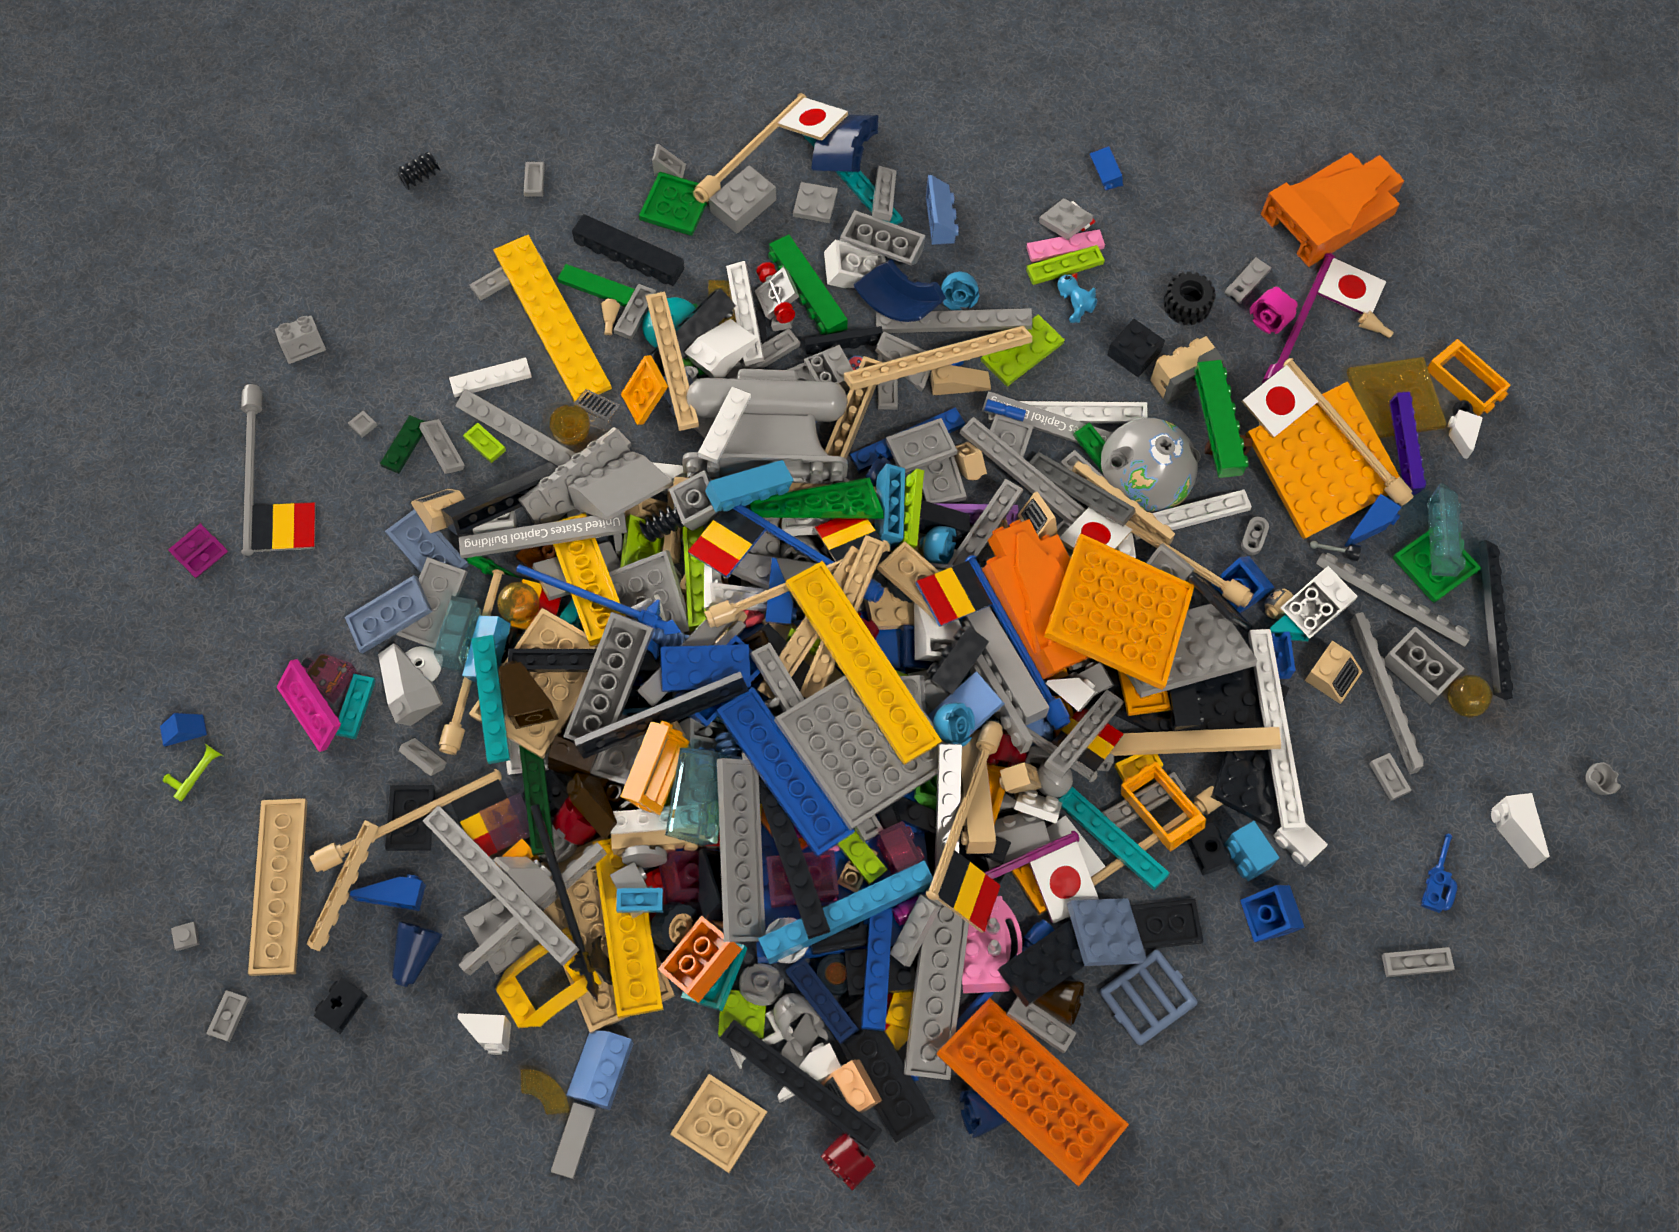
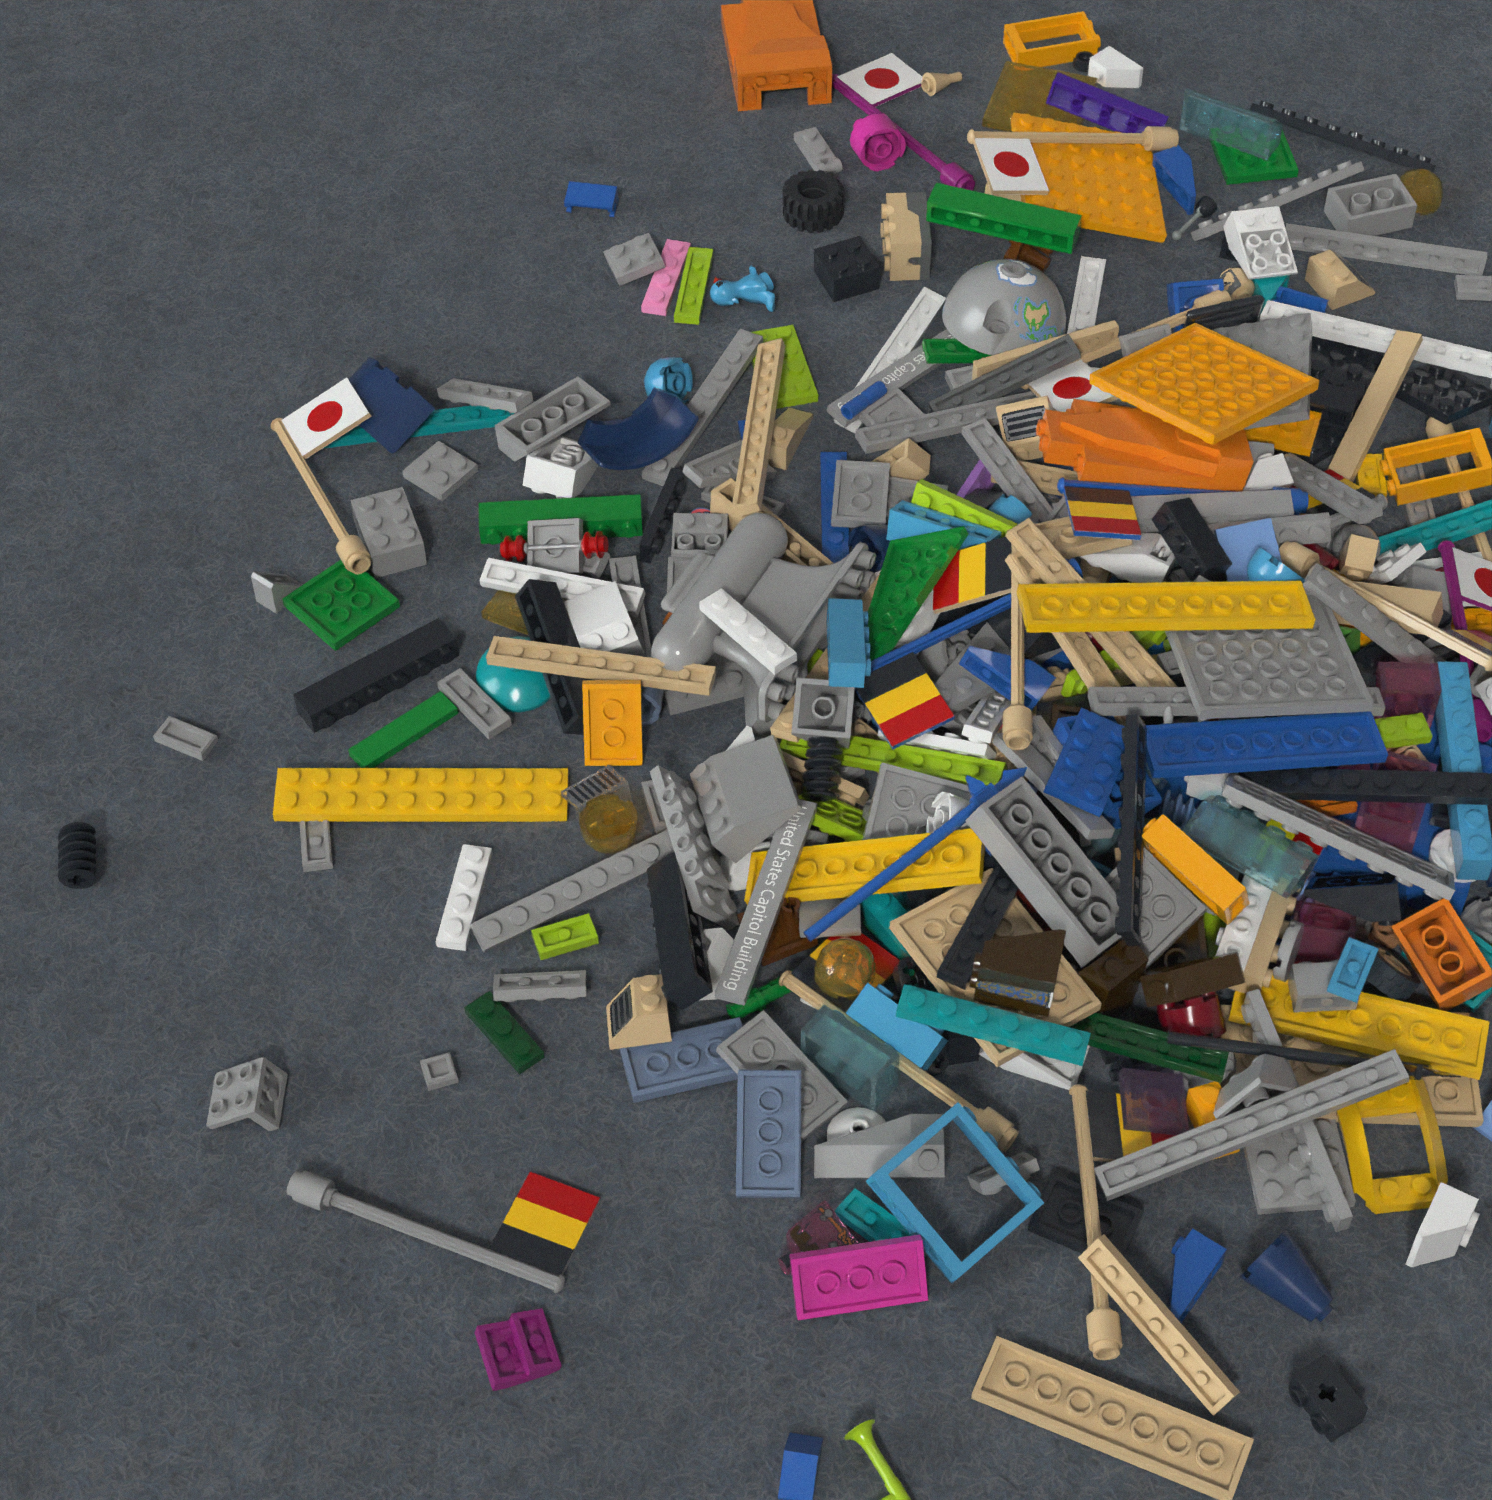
camera: 60 degrees left, 15 degrees down
(351, 720) = (914, 1221): none -> dark azure window
(610, 310) = (454, 728): tan cone -> none
(940, 211) = (544, 359): medium blue slope -> none
(1255, 537) = (1141, 273): light grey plate -> none

